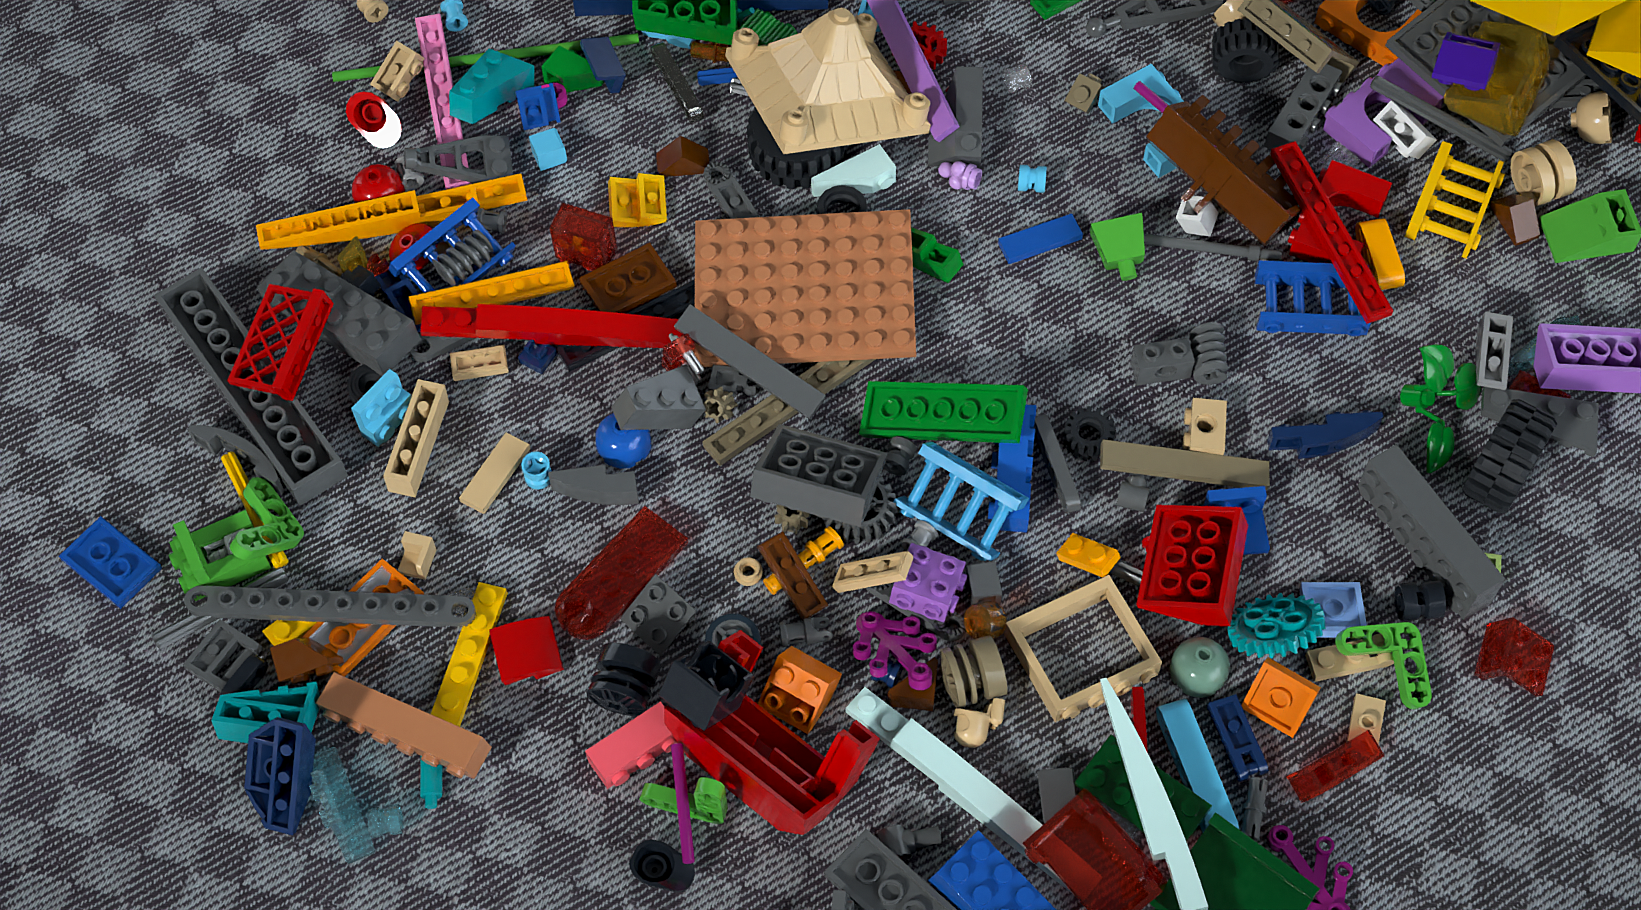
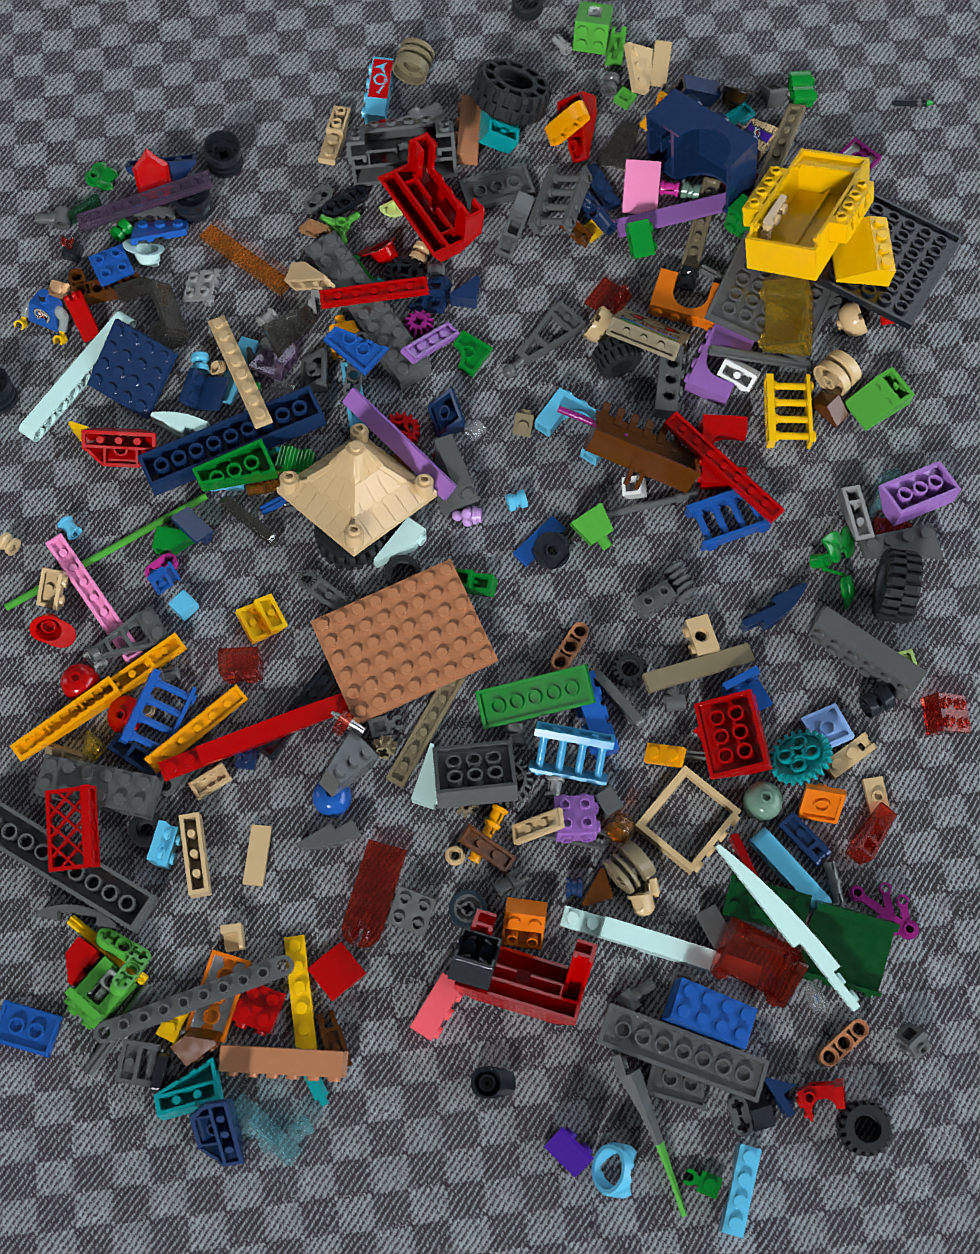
camera: 25 degrees left, 10 degrees up
(213, 503) = (80, 959): none -> red slope
(365, 277) = (105, 756): black piece -> none
(404, 656) = (259, 1010): none -> red plate
(463, 256) = (167, 715): dark grey piece -> none
(484, 724) = (333, 1037): none -> reddish brown hinge
(488, 85) = (121, 575): teal wedge -> none
(537, 464) = (282, 843): medium azure wheel -> none
(623, 679) = (411, 966): black wheel -> none
(628, 281) = (283, 682): reddish brown plate -> none
(682, 158) = (278, 576): reddish brown slope -> none
(682, 803) = (488, 1035): magenta bar -> none
(706, 803) = (501, 1029): bright green beam -> none
(739, 476) = (425, 788): none -> light aqua slope
(750, 362) = (393, 710): dark grey tile -> none
(875, 626) = (571, 869): magenta plant -> none
(989, 46) = (446, 414): none -> dark blue slope
(1028, 369) = (570, 640): none -> nougat beam
(1056, 238) = (561, 550): none -> black plate
(1380, 253) = (757, 467): light orange beam -> none
(1394, 644) = (875, 739): bright green beam -> none
(1465, 61) = (764, 316): dark purple slope -> none

